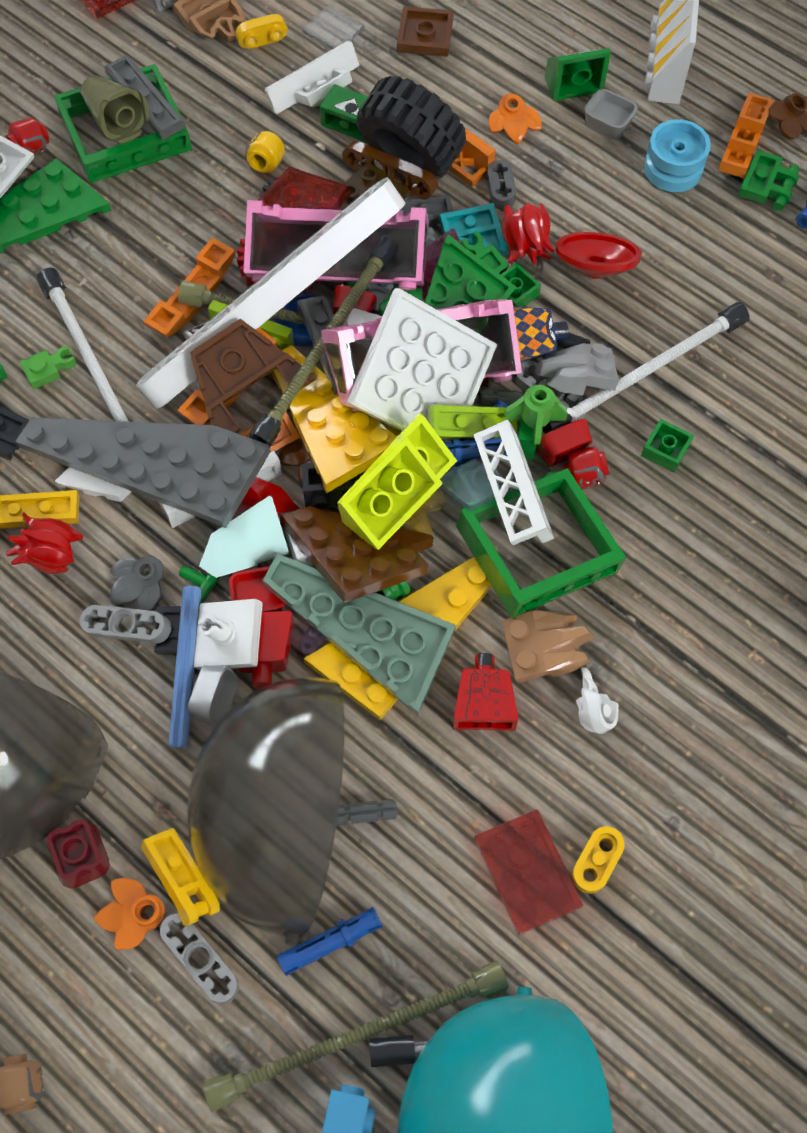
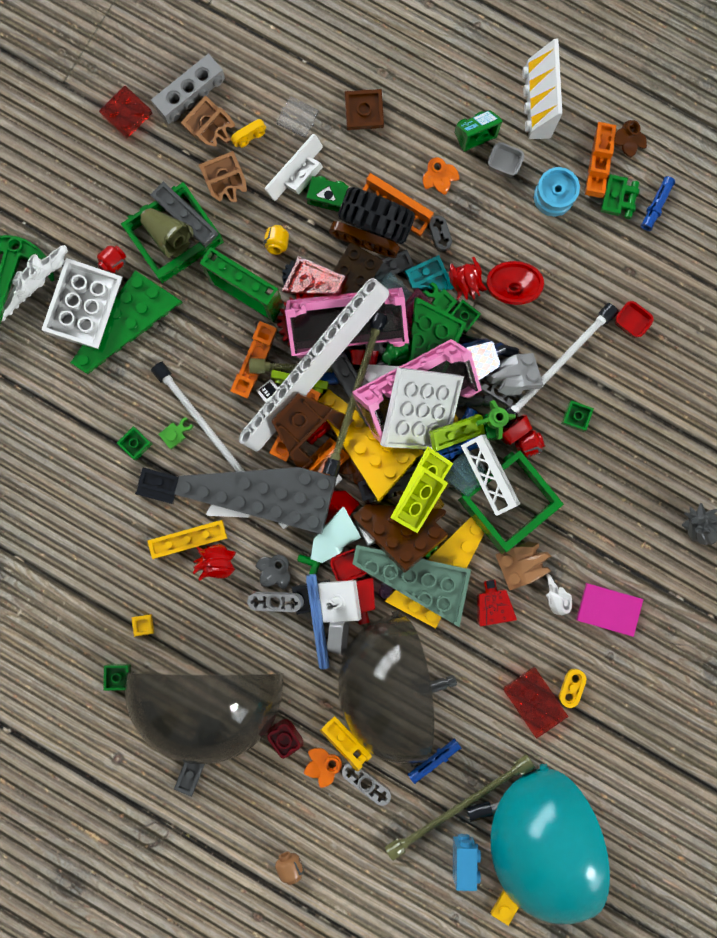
camera: 10 degrees left, 20 degrees up
(171, 136) = (241, 284): none -> green window
(213, 71) = (224, 176): none -> medium nougat plate
(260, 400) = (319, 432): none -> red axle
(682, 743) = (609, 609): none -> dark pink tile
(771, 331) = (634, 319): none -> red piece

